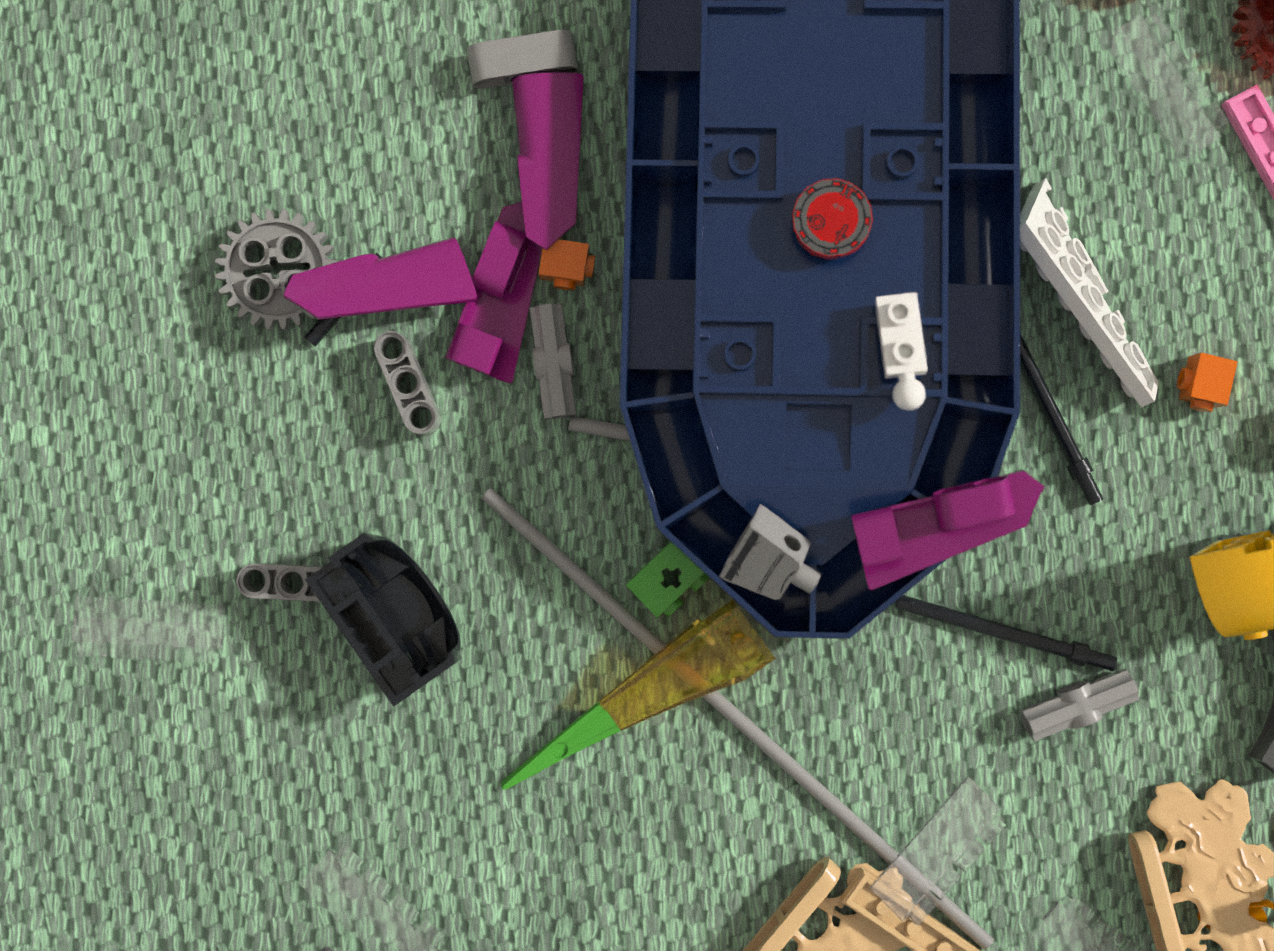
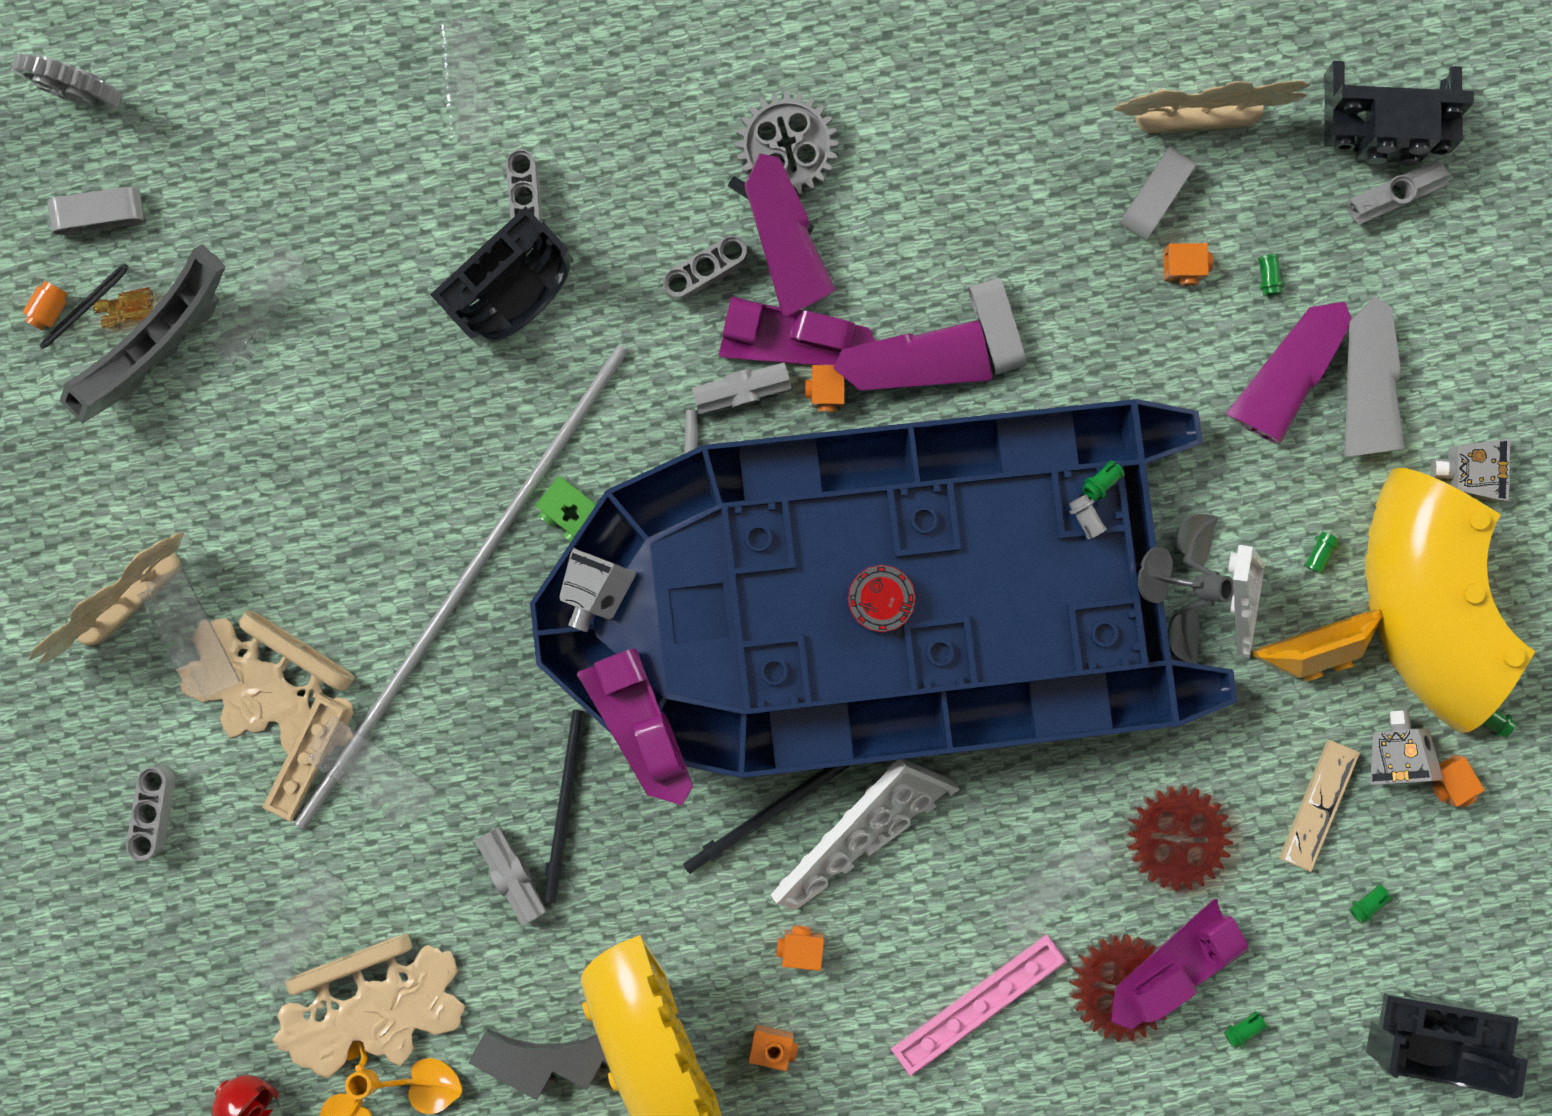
camera: 85 degrees right, 0 degrees up
(695, 663) = (500, 542): clear yellow plate -> none
(902, 347) = (780, 670): white plate -> none

